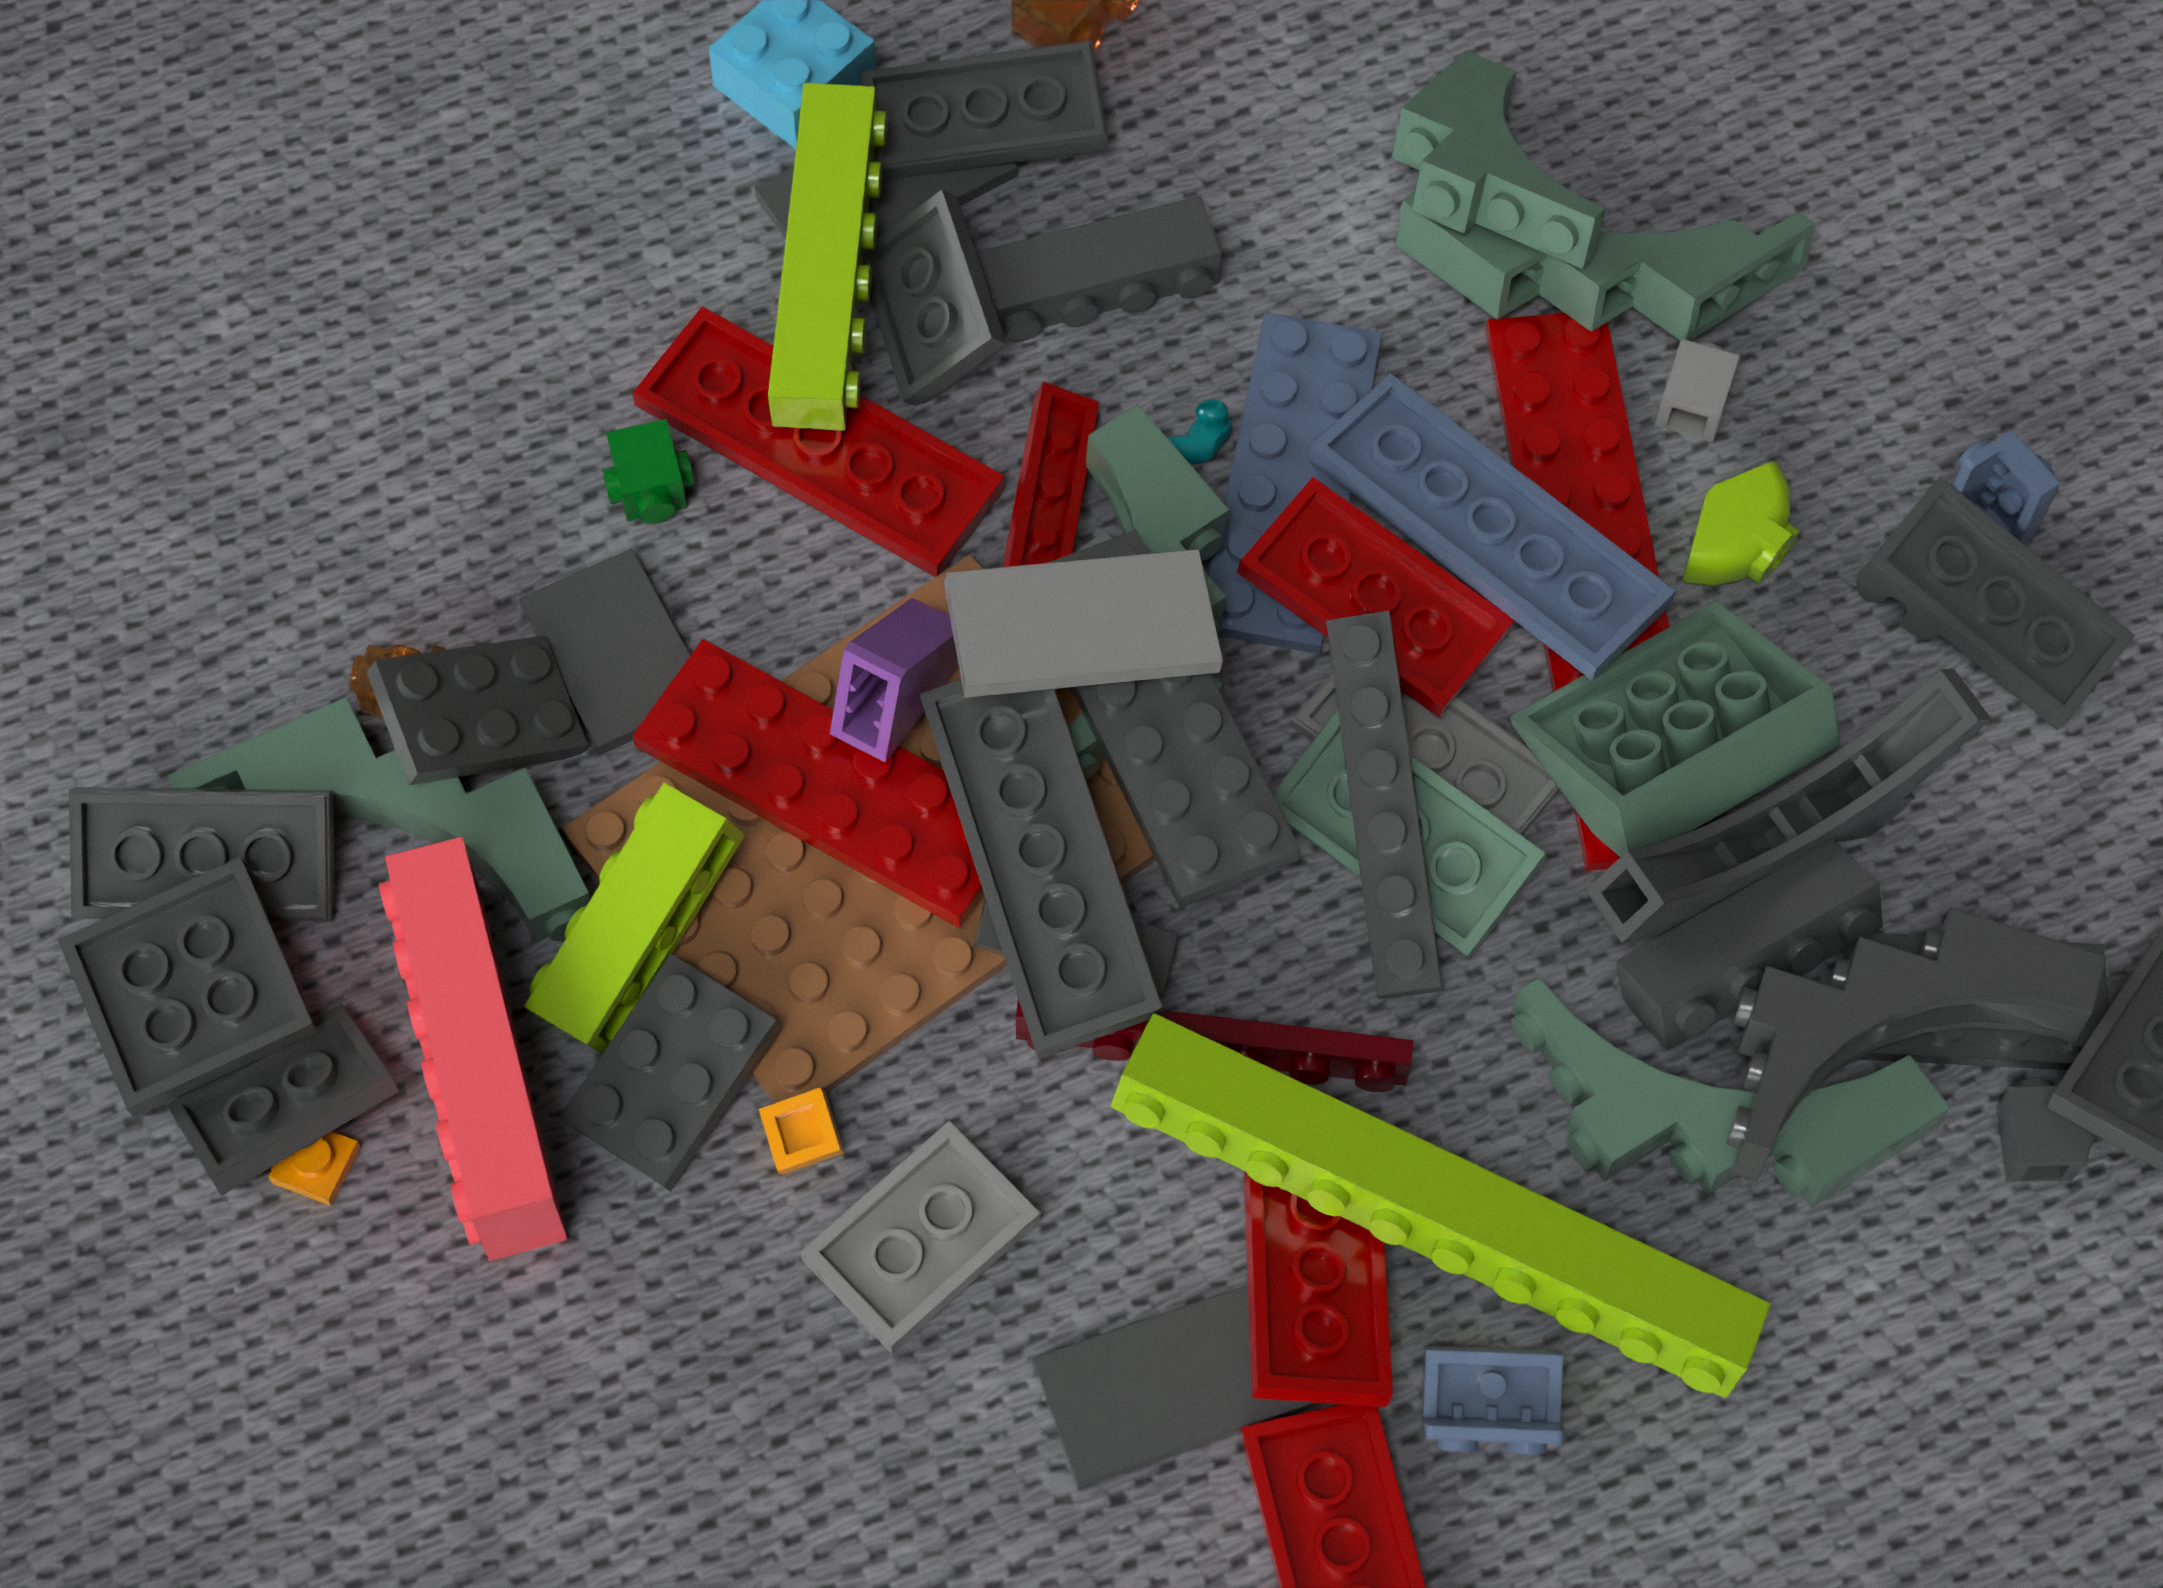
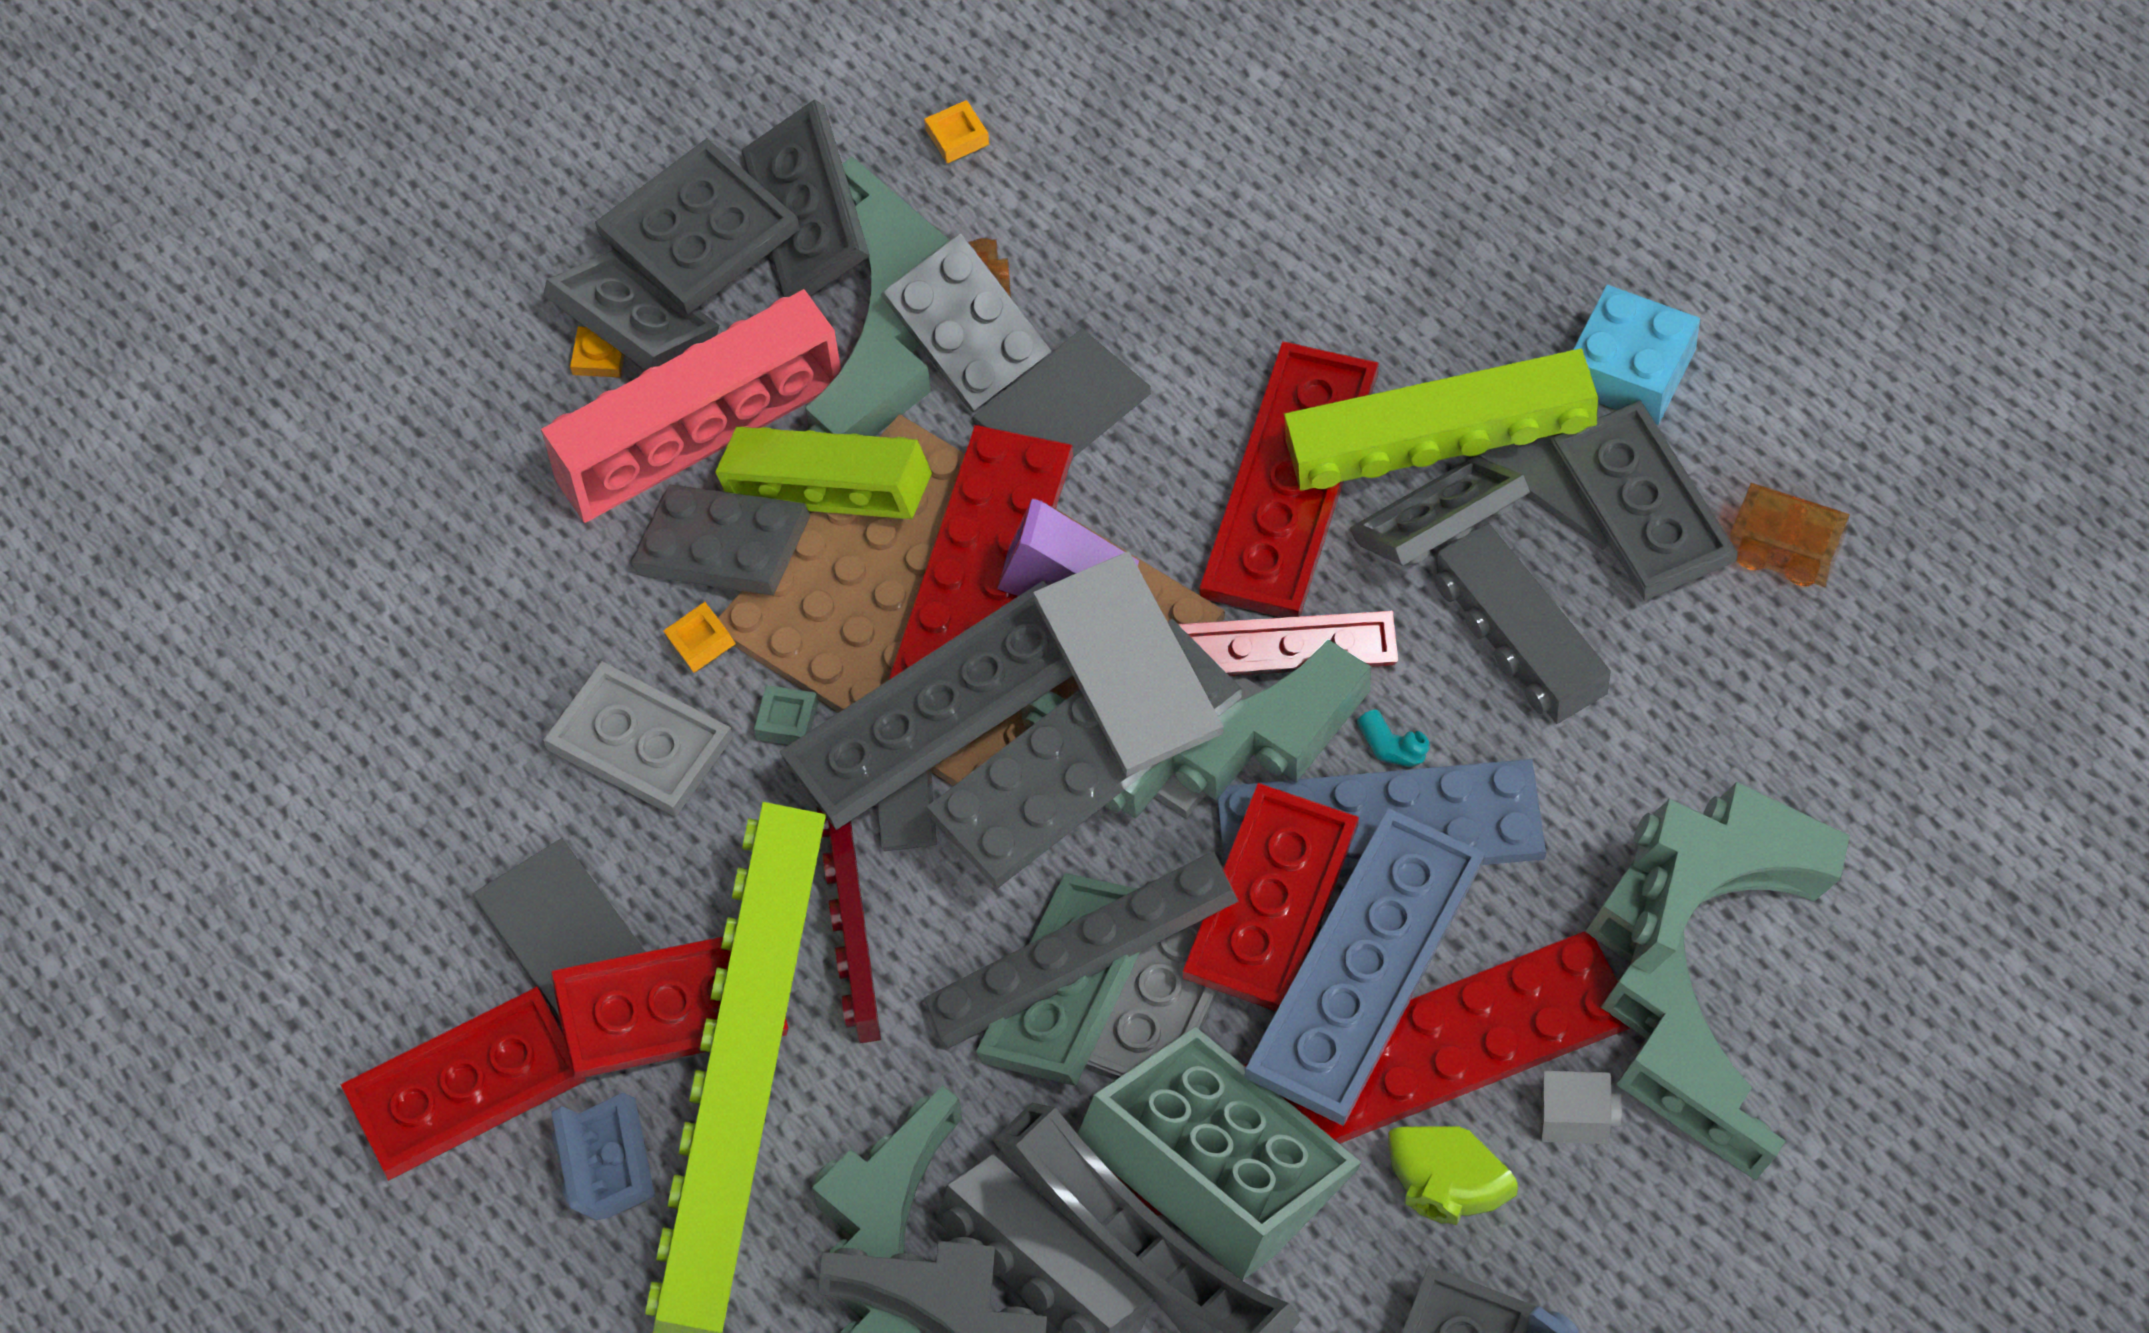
camera: 80 degrees right, 5 degrees down
(163, 661) = (956, 131): none -> light orange plate
(647, 472) = (1216, 373): green brick -> none
(948, 1058) = (785, 715): none -> sand green plate

